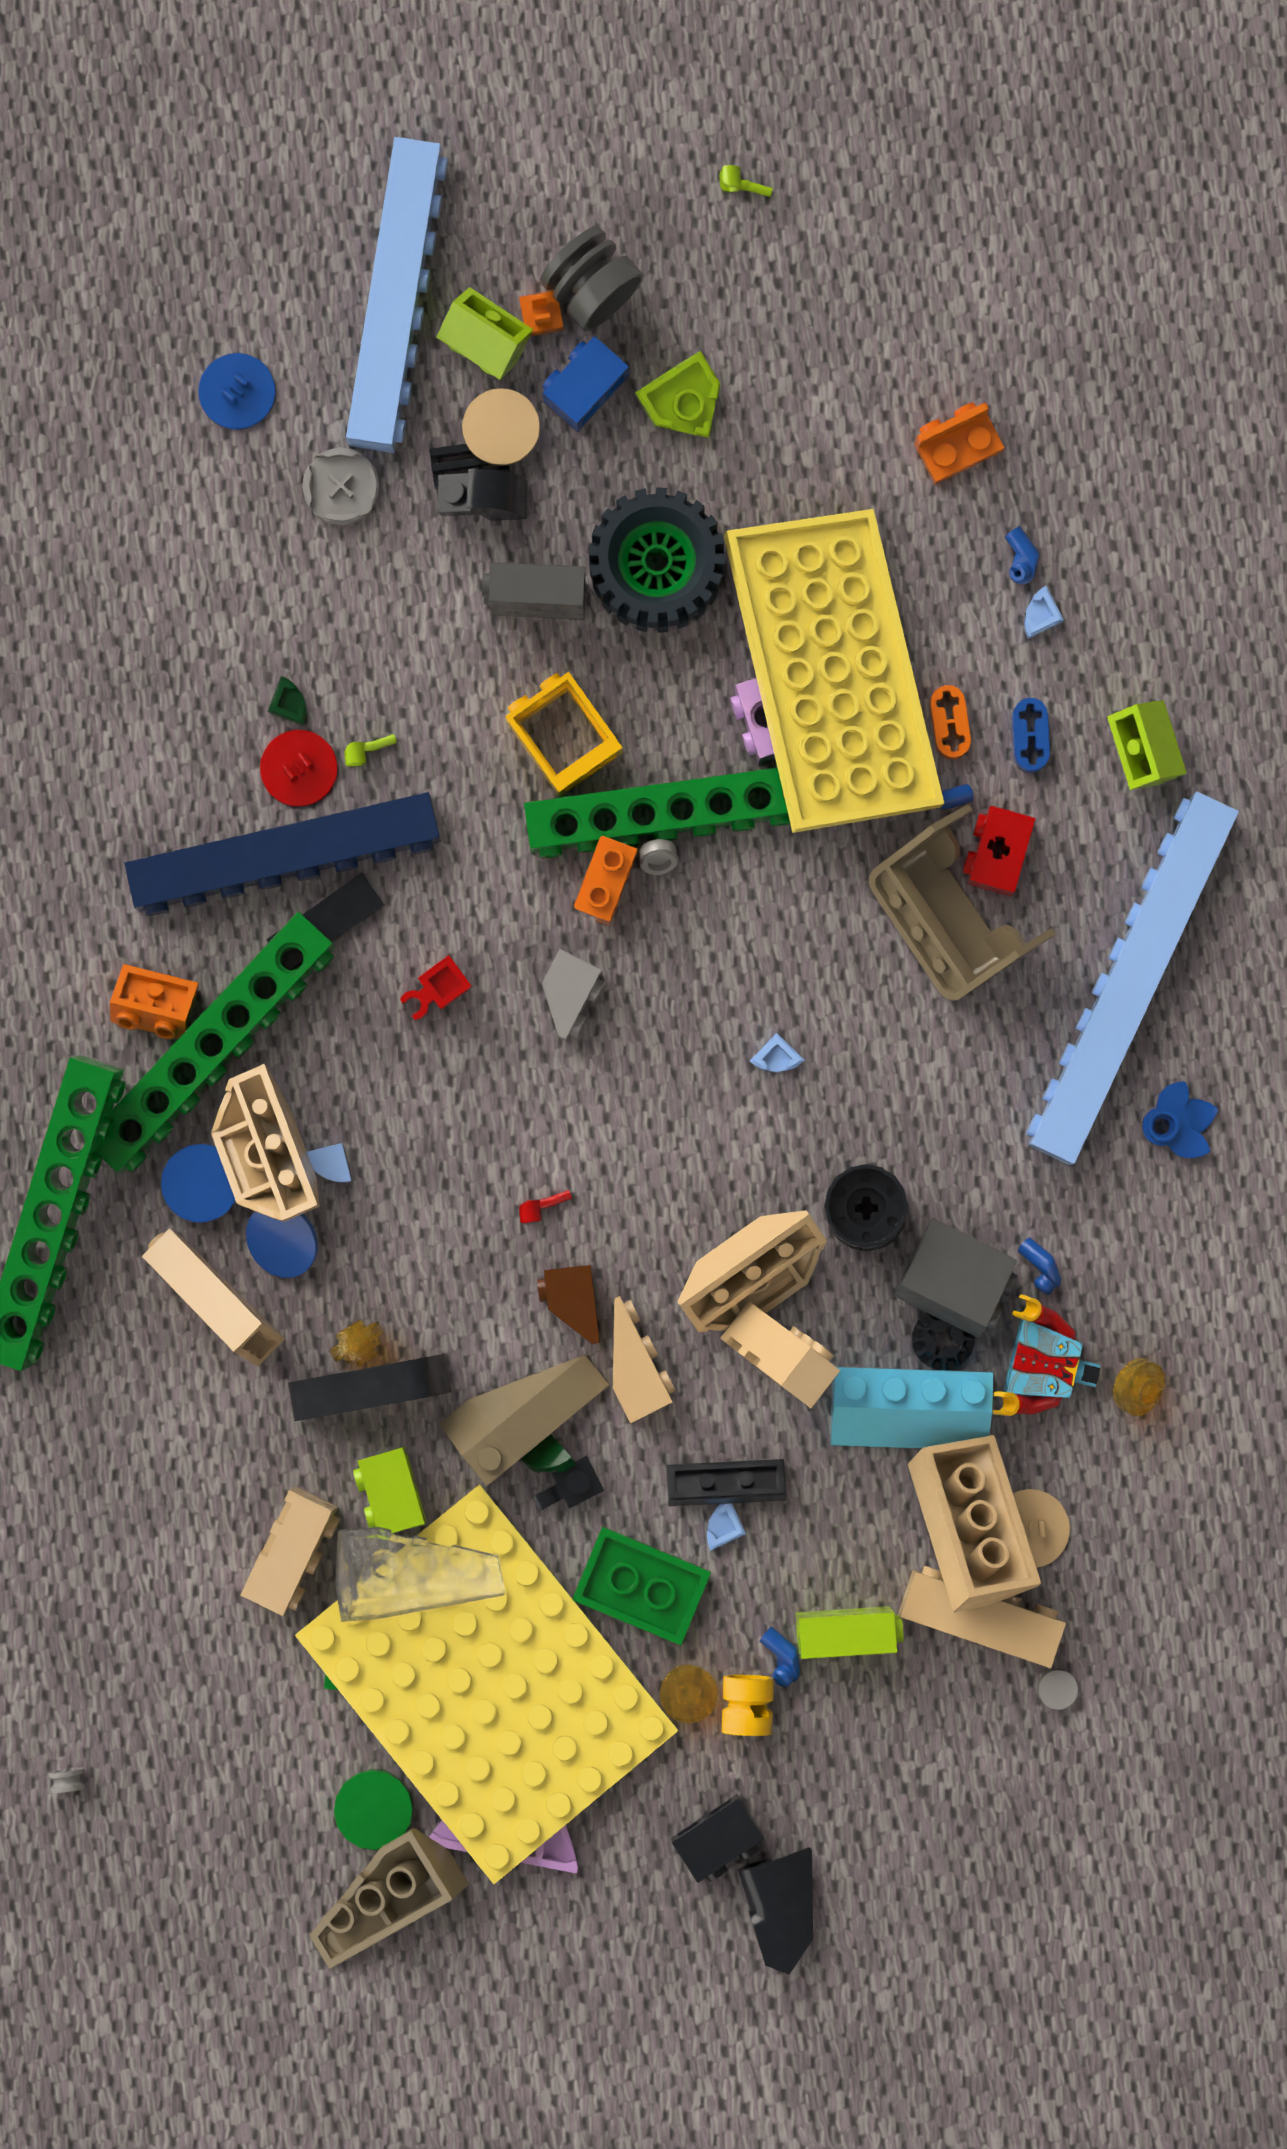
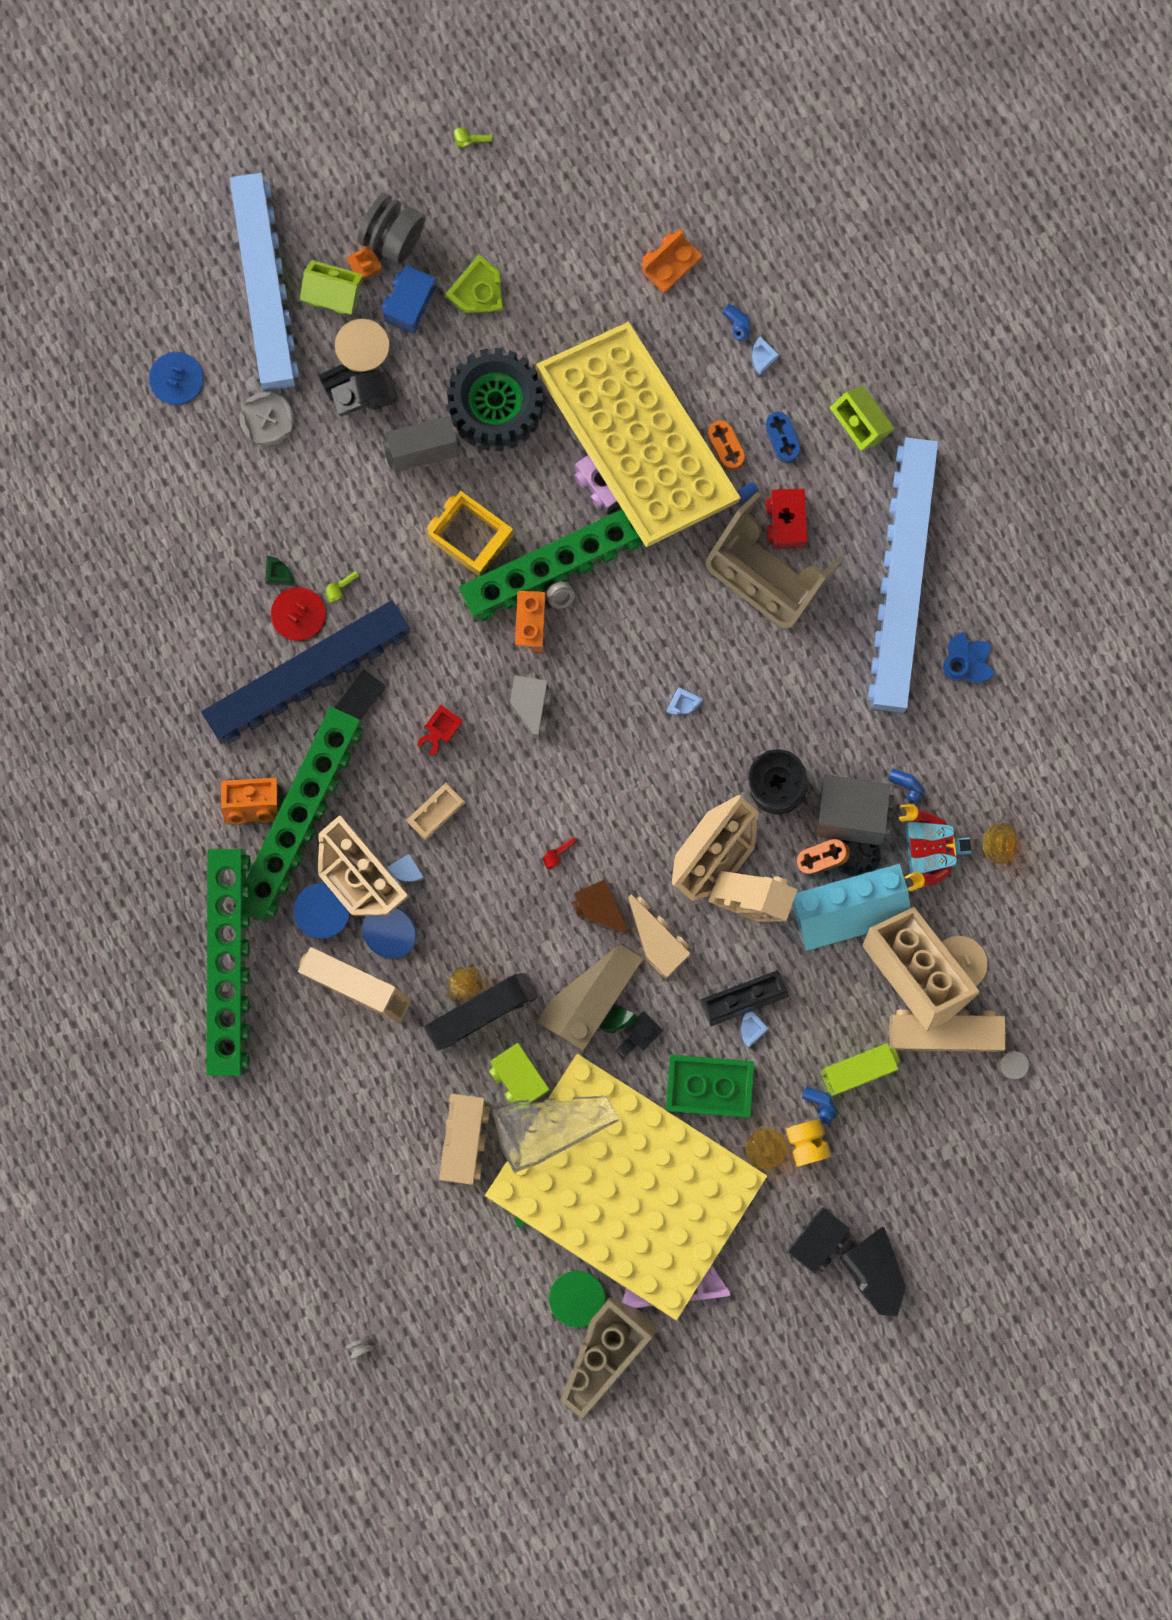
camera: 20 degrees left, 5 degrees down
(396, 1097) = (435, 811): none -> tan plate
(894, 1318) = (820, 851): none -> orange beam

